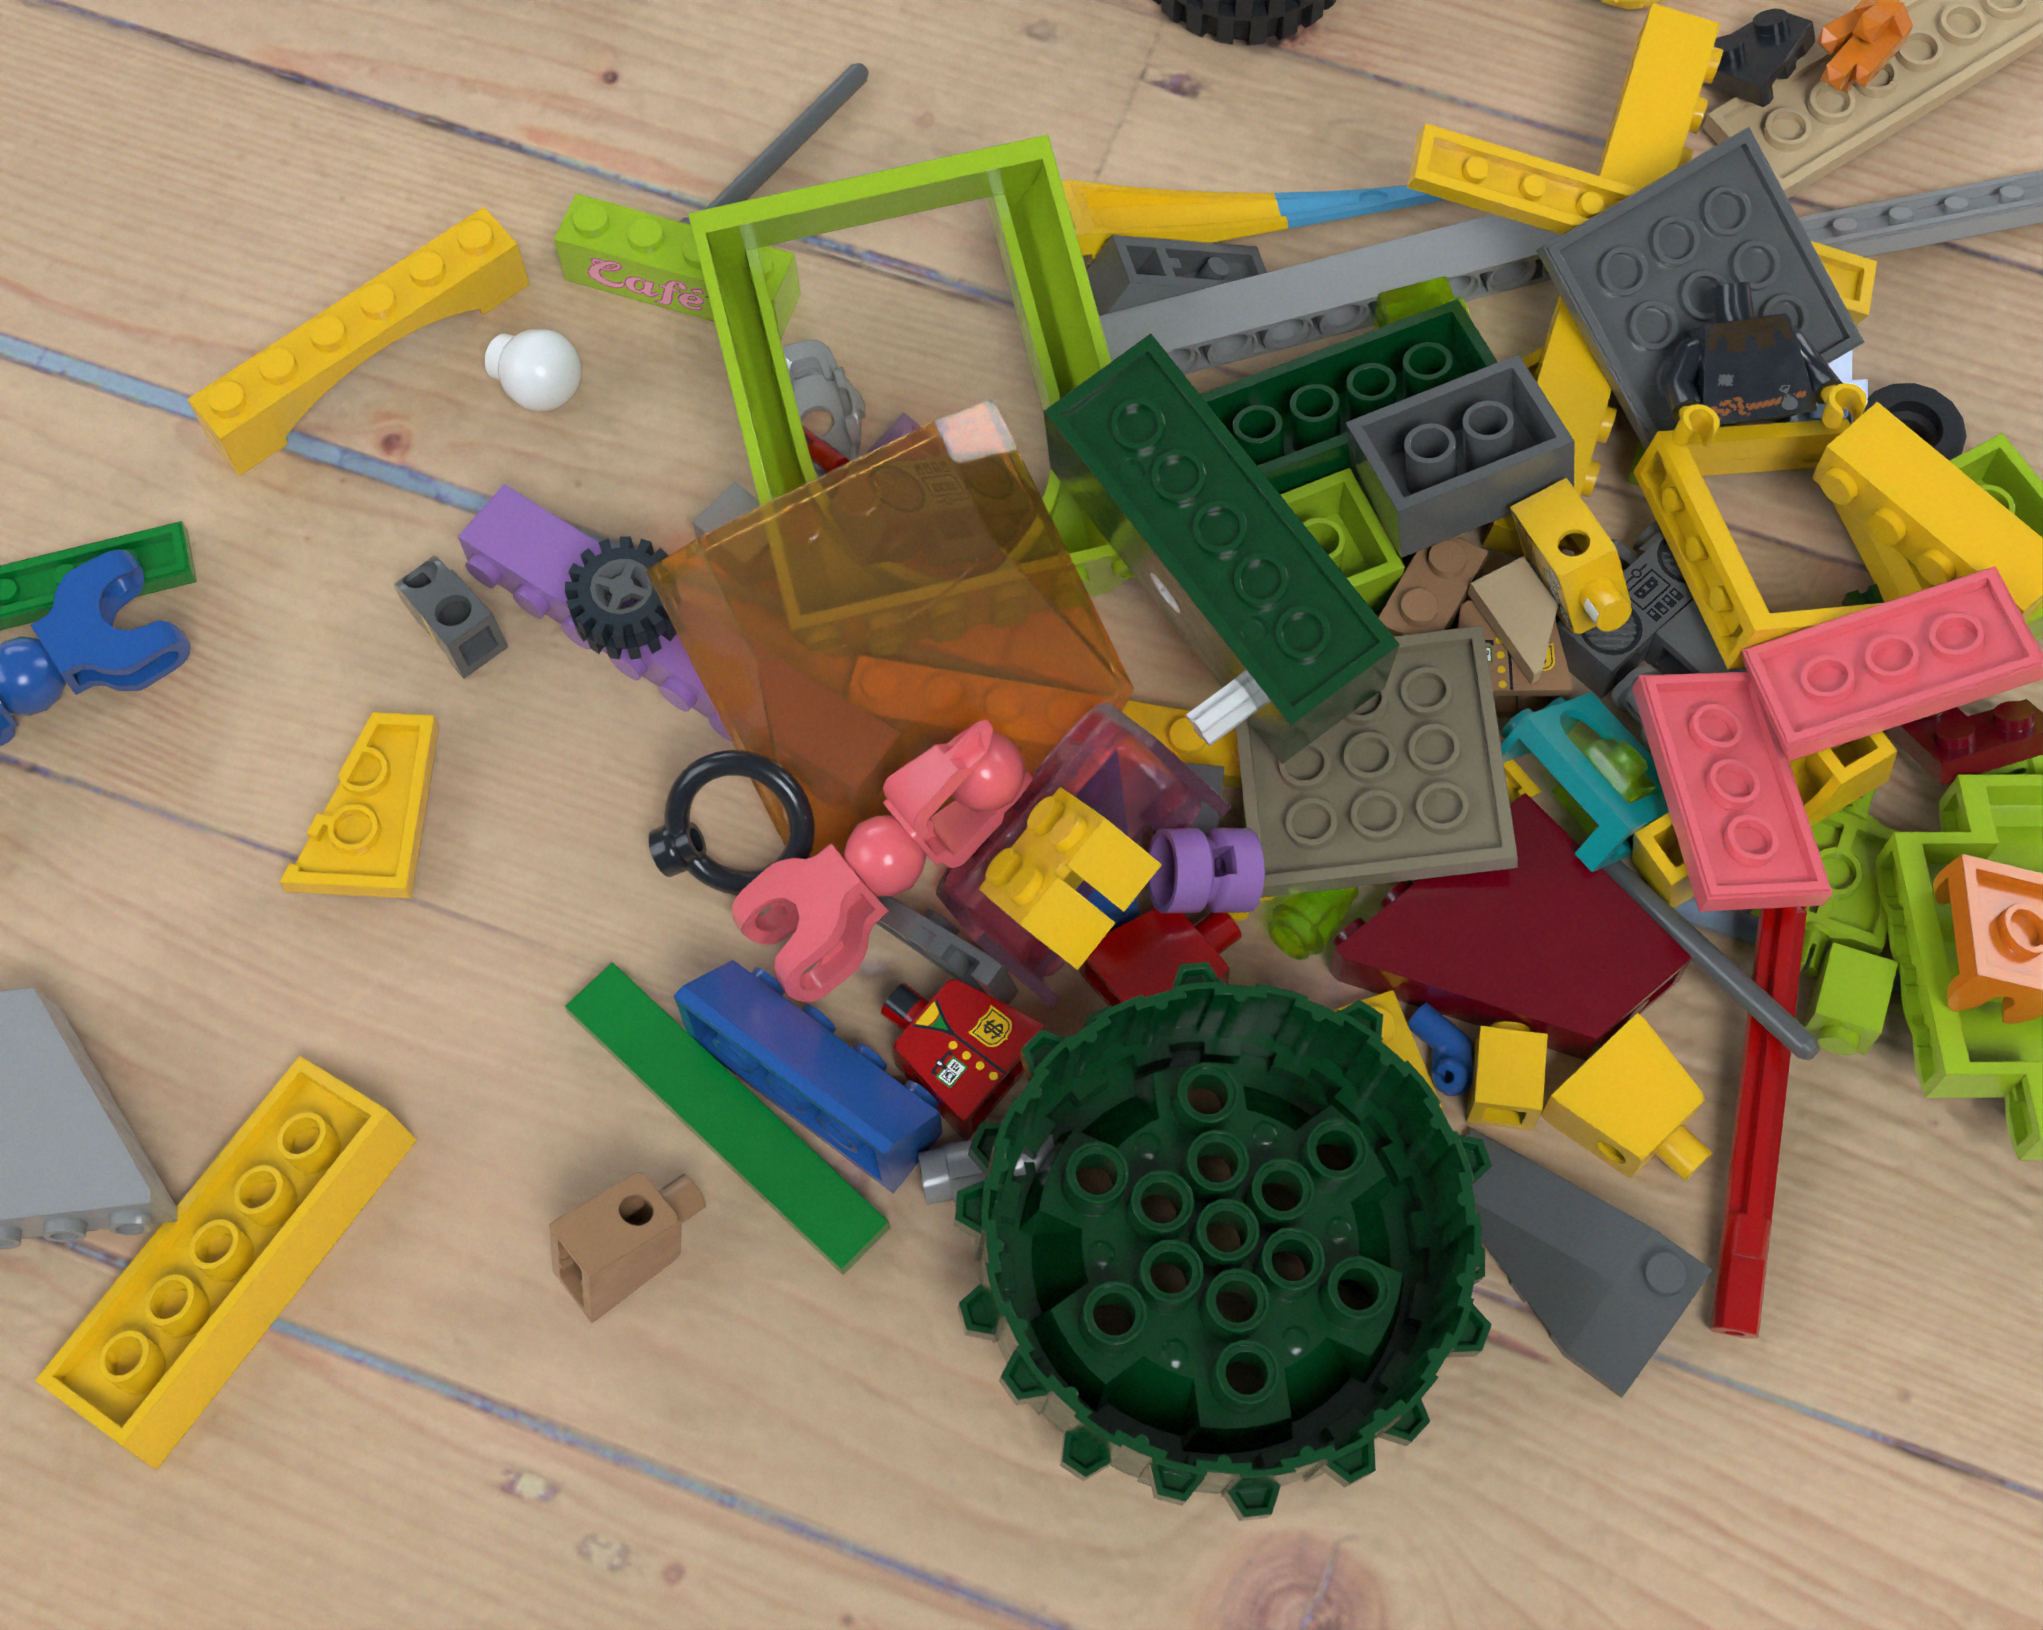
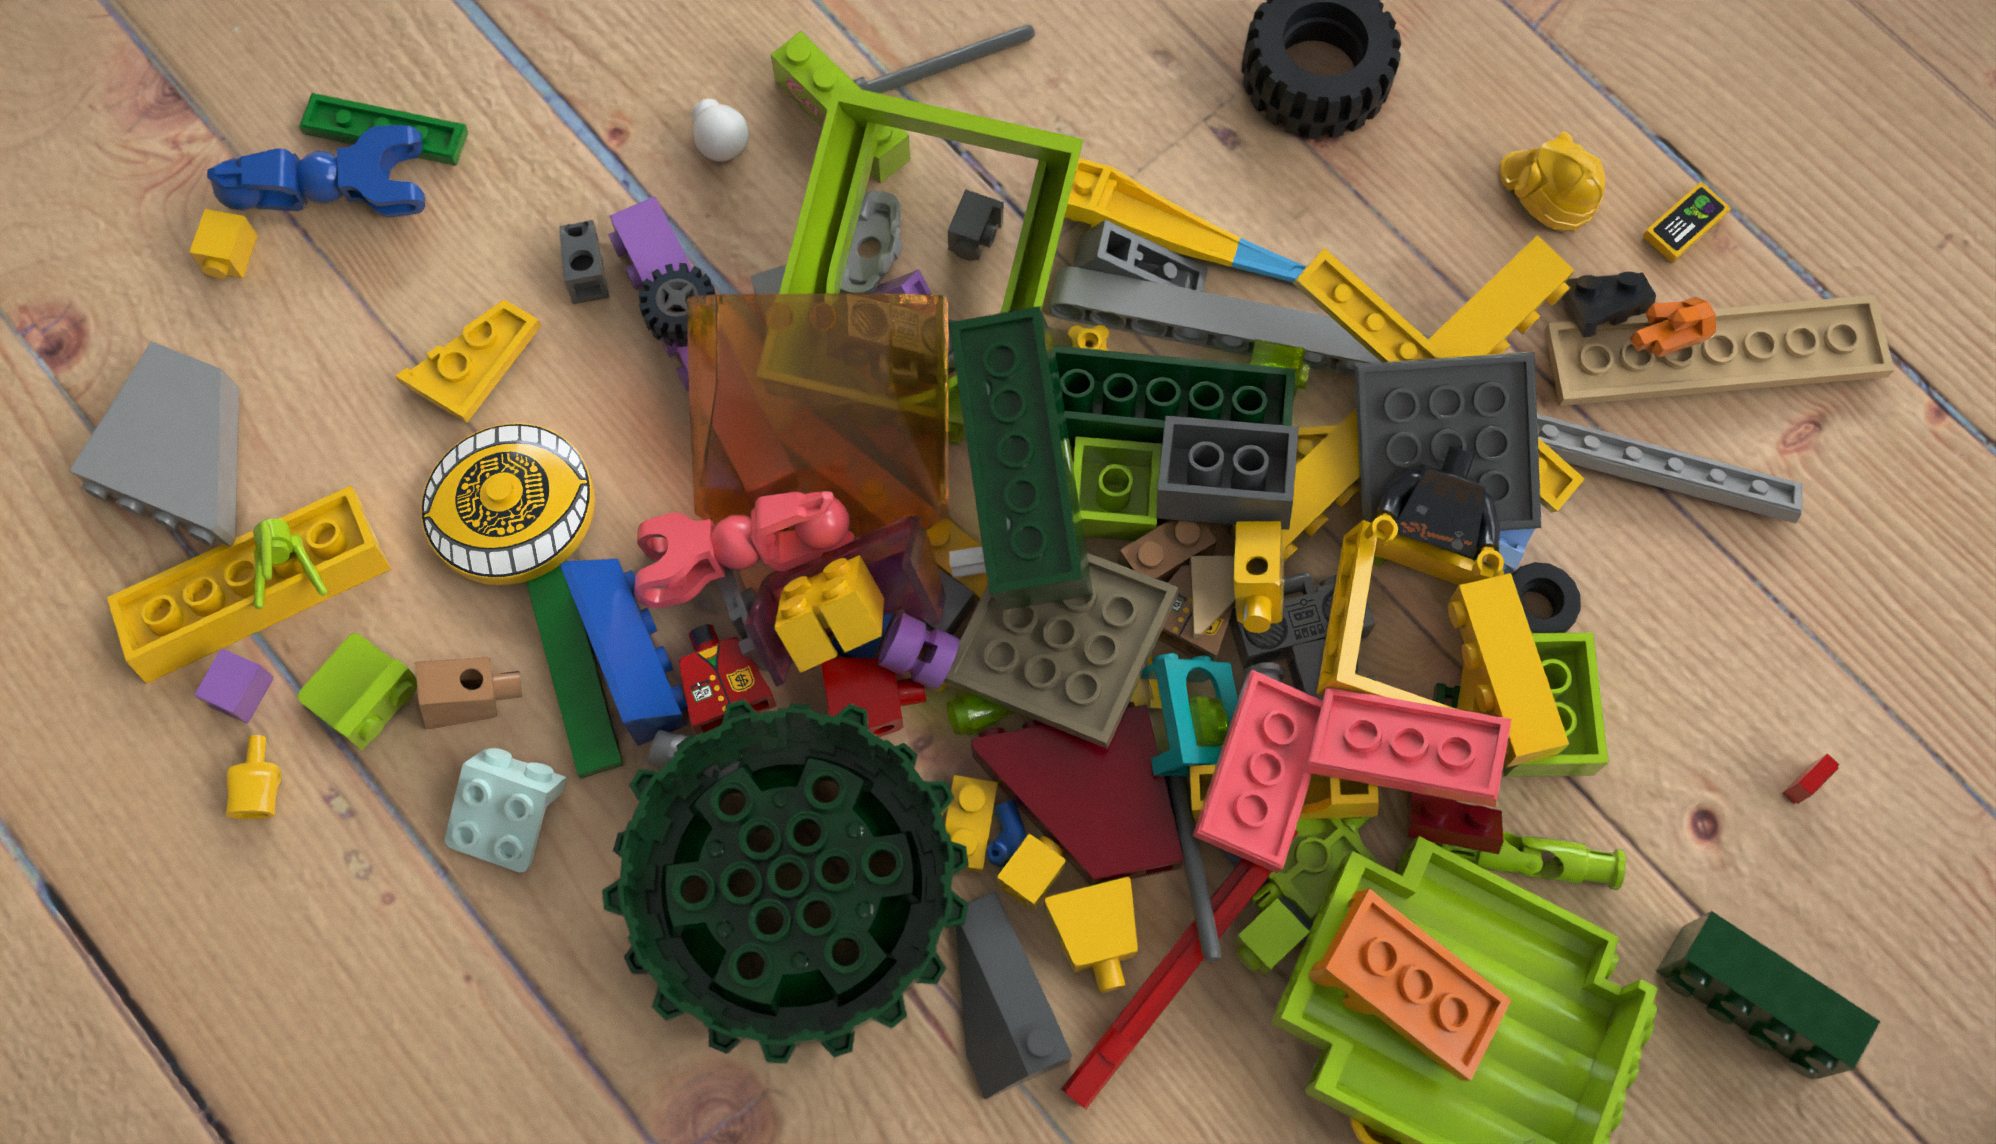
camera: 25 degrees right, 5 degrees up
(250, 1183) = (274, 547): none -> lime plant
(265, 396) = (549, 71): yellow arch -> none
(292, 1402) = (234, 686): none -> medium lavender panel
(395, 1521) = (253, 784): none -> yellow piece
(473, 1317) = (358, 690): none -> lime bracket
(533, 971) = (508, 504): none -> dish
(680, 844) = (634, 472): black piece -> none
(765, 1369) = (501, 808): none -> light aqua bracket
(823, 453) = (856, 271): red pin -> none
(939, 328) = (974, 225): none -> dark grey brick

